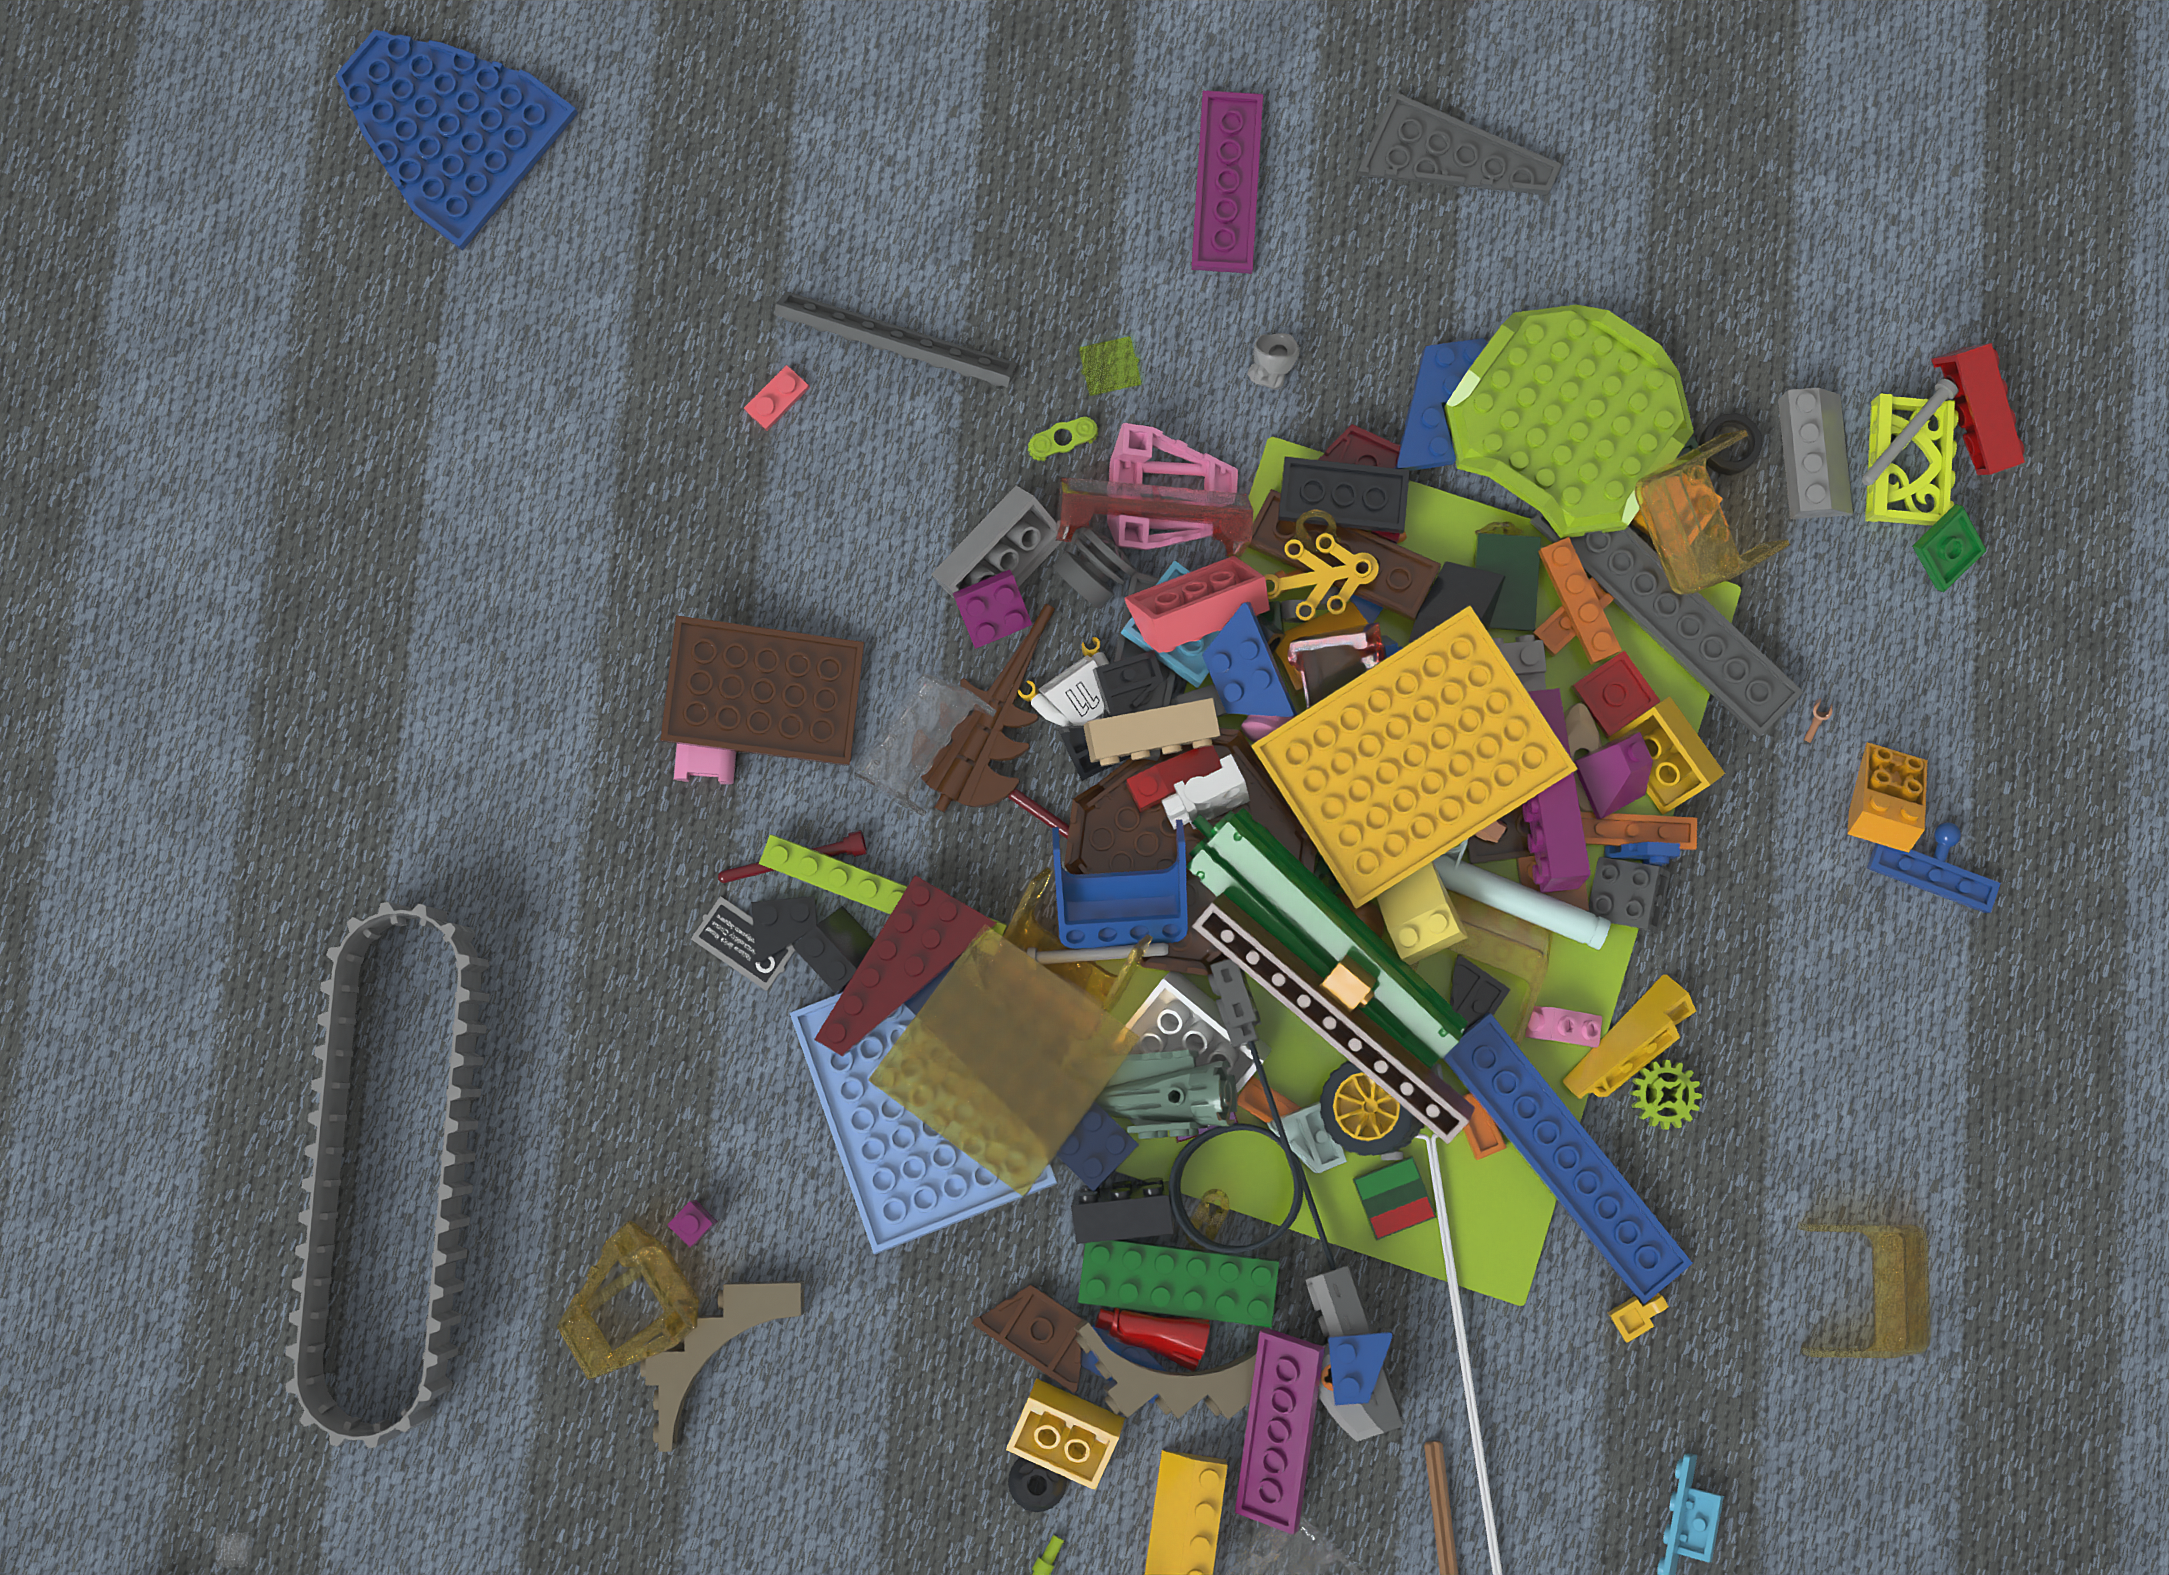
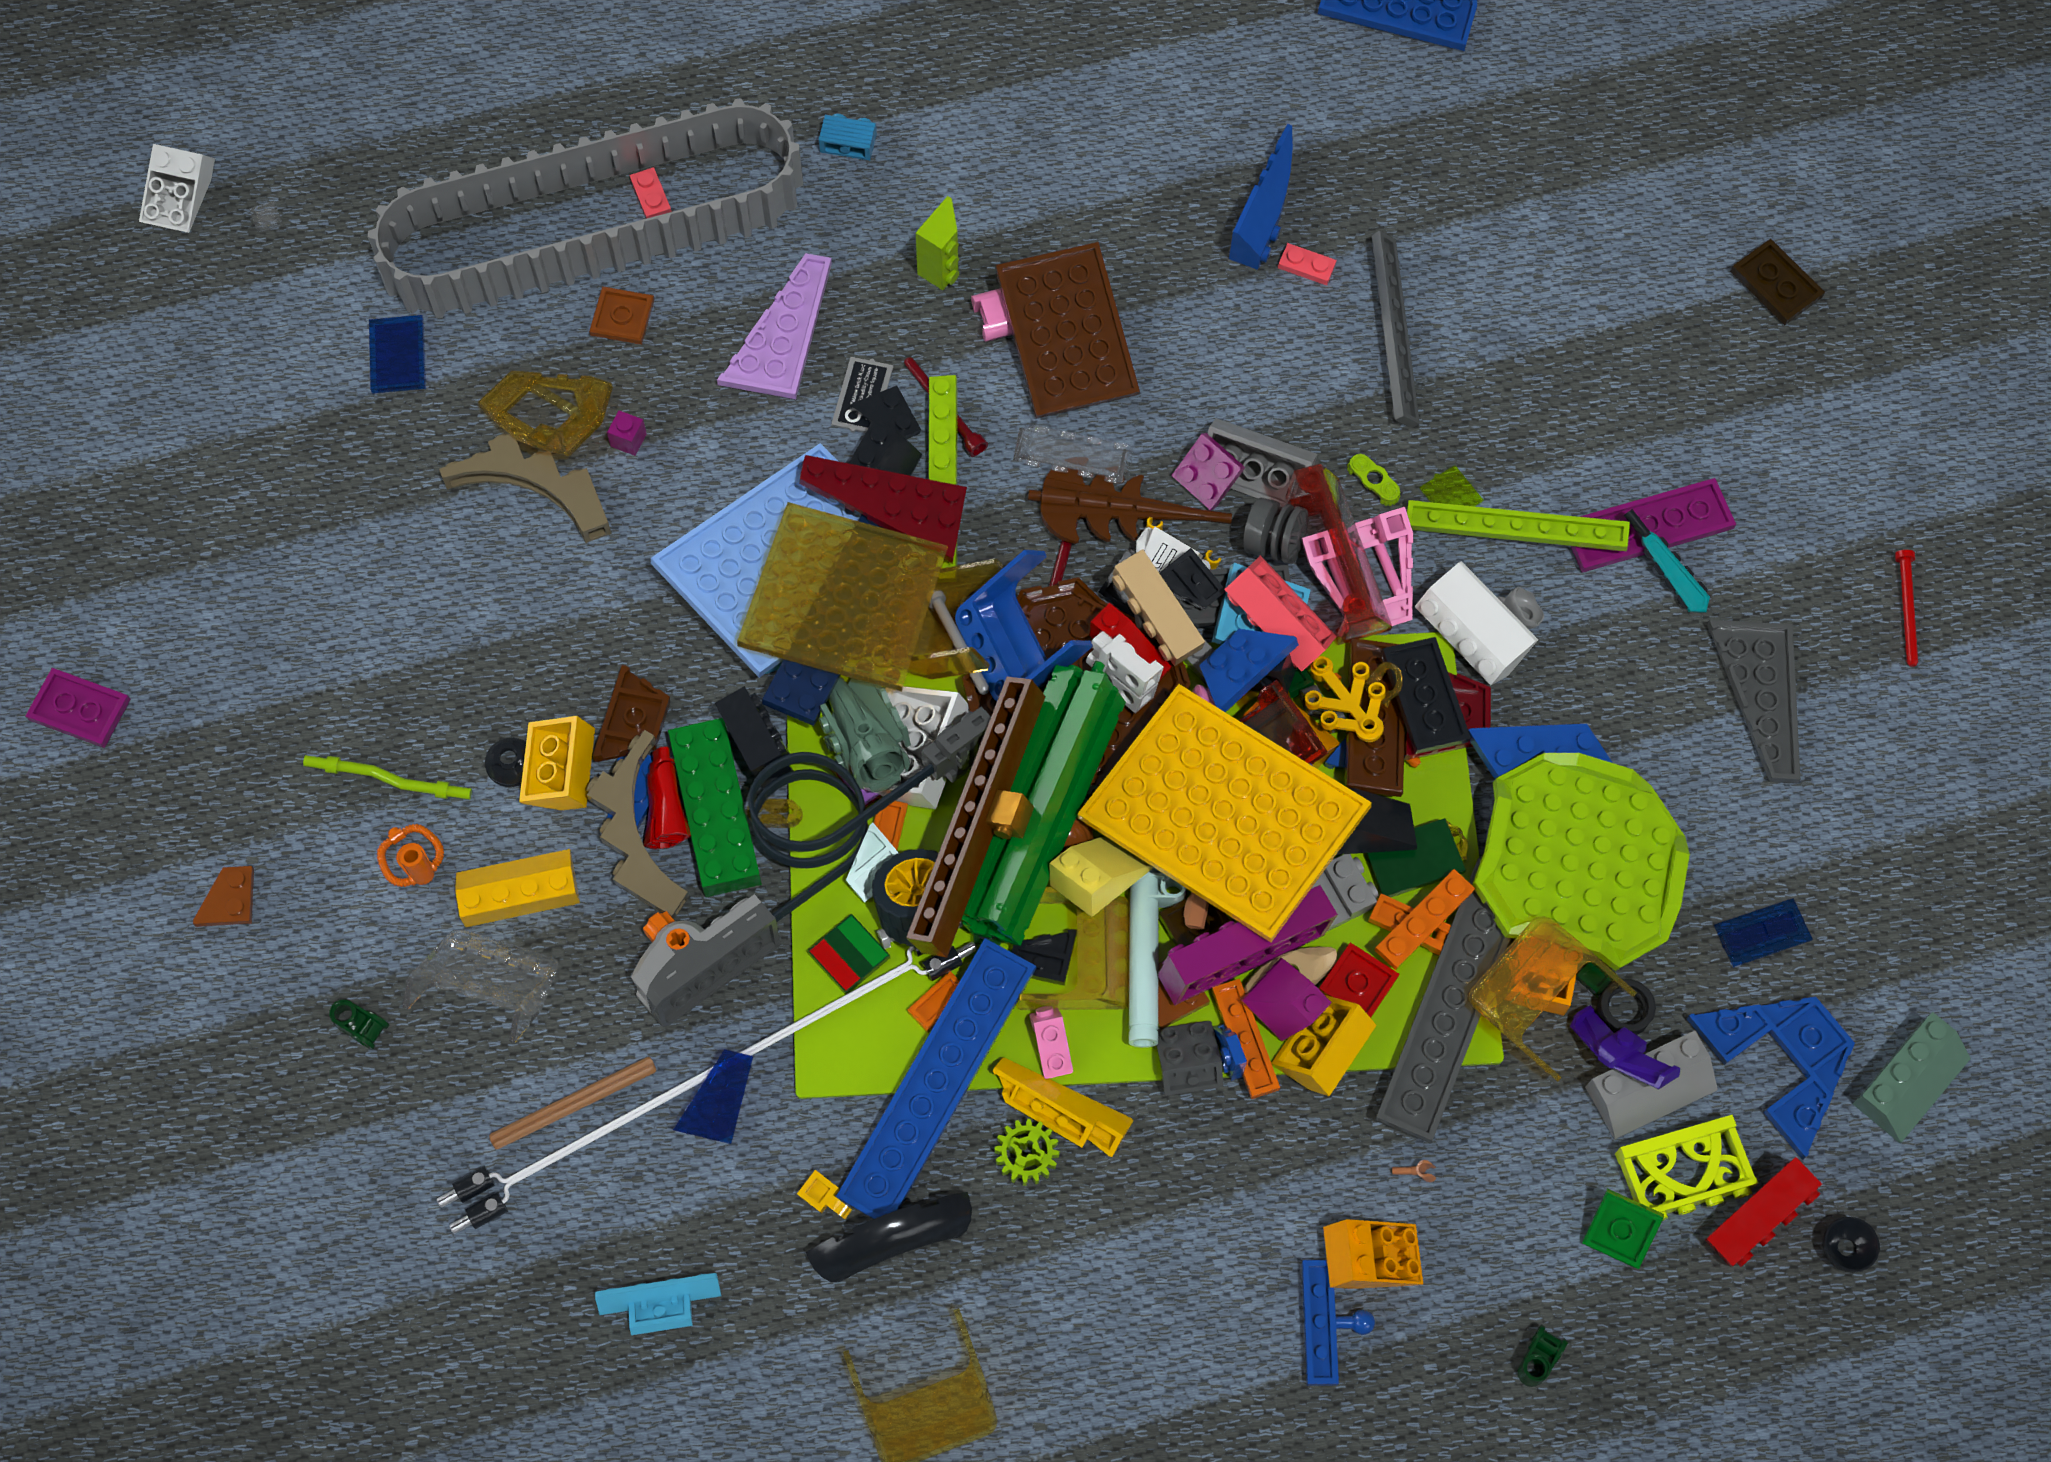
camera: 65 degrees right, 15 degrees down
(388, 1089) = (650, 193): none -> coral plate
(407, 838) = (847, 136): none -> dark azure brick
(481, 1450) = (397, 354): none -> clear blue tile
(534, 1176) = (622, 315): none -> dark orange tile
(607, 792) = (938, 246): none -> lime slope
(643, 1012) = (781, 339): none -> lavender wing
(691, 411) = (1264, 208): none -> blue wedge
(1181, 315) = (1518, 525): none -> lime plate
(1278, 407) = (1476, 623): none -> white slope
(1279, 1430) = (618, 919): magenta plate -> none
(1298, 179) = (1679, 578): none -> teal sword
(1356, 1365) = (694, 950): blue wing -> none
(1501, 1387) = (719, 1099): none -> clear blue wing
(1699, 276) = (1763, 932): none -> clear blue piece
(1709, 1263) = (891, 1236): none -> black brick
(1783, 470) = (1621, 1050): none -> dark purple plate
(1826, 283) = (1810, 1040): none -> blue wing
(1895, 206) = (1914, 1077): none -> sand green slope
(1944, 390) = (1762, 1170): light grey bar -> none
(2038, 678) = (1544, 1353): none -> dark green piece
(2048, 333) = (1861, 1235): none -> black piece

